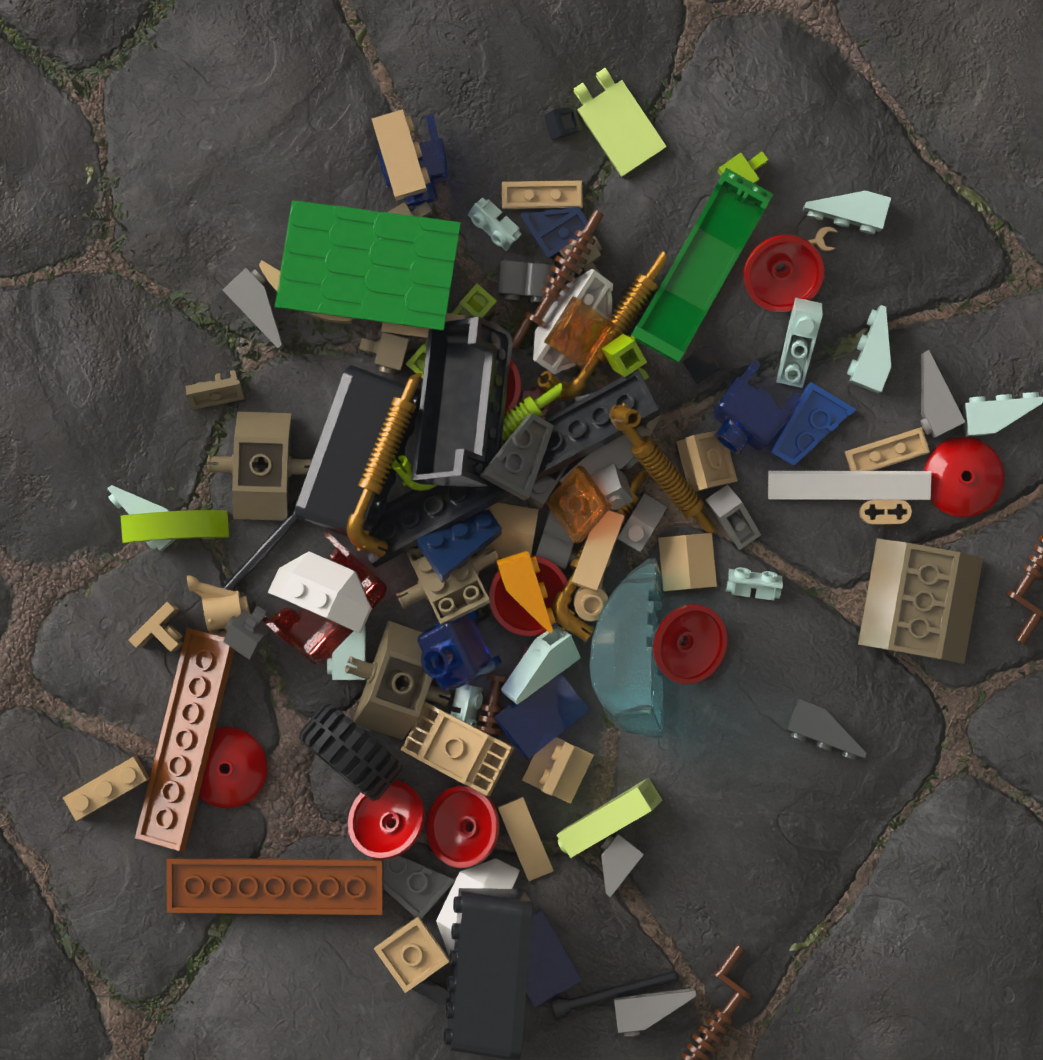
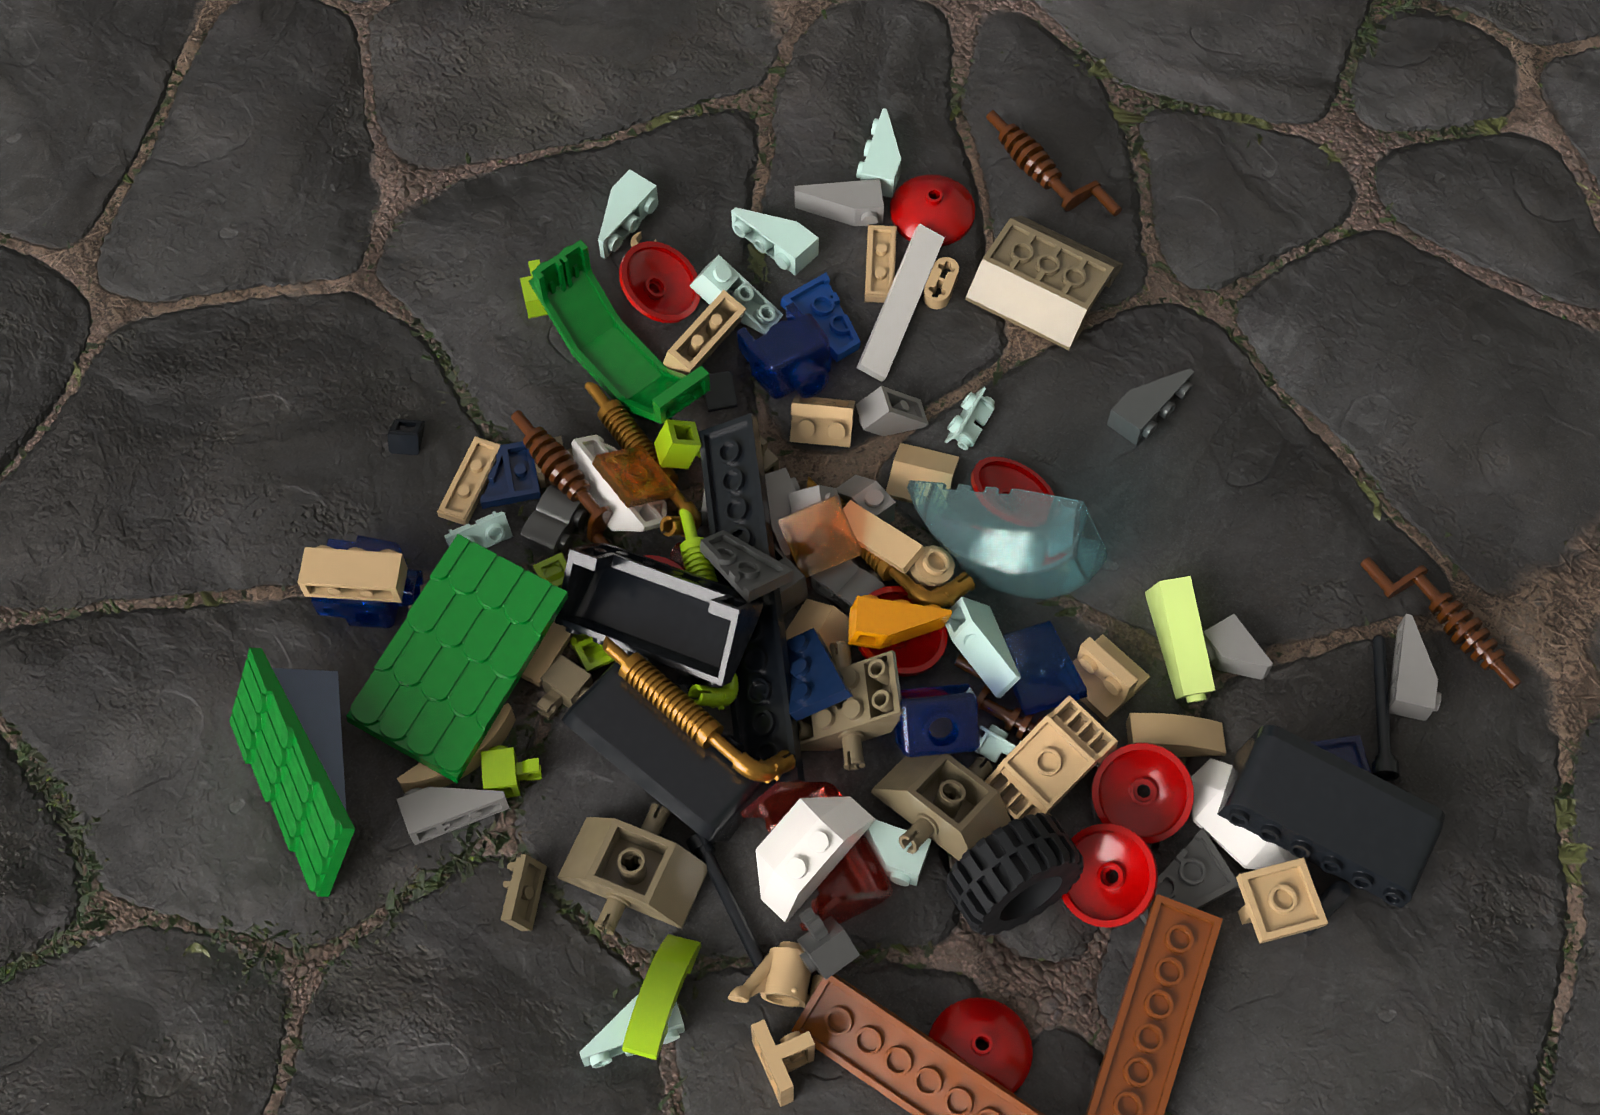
camera: 70 degrees left, 25 degrees down
(248, 180) = (293, 740): none -> green piece
(301, 335) = (503, 771): none -> lime brick
(619, 124) = (432, 385): yellowish green tile -> none
(660, 466) = (804, 446): pearl gold piece -> none
(745, 332) = (705, 334): none -> tan brick

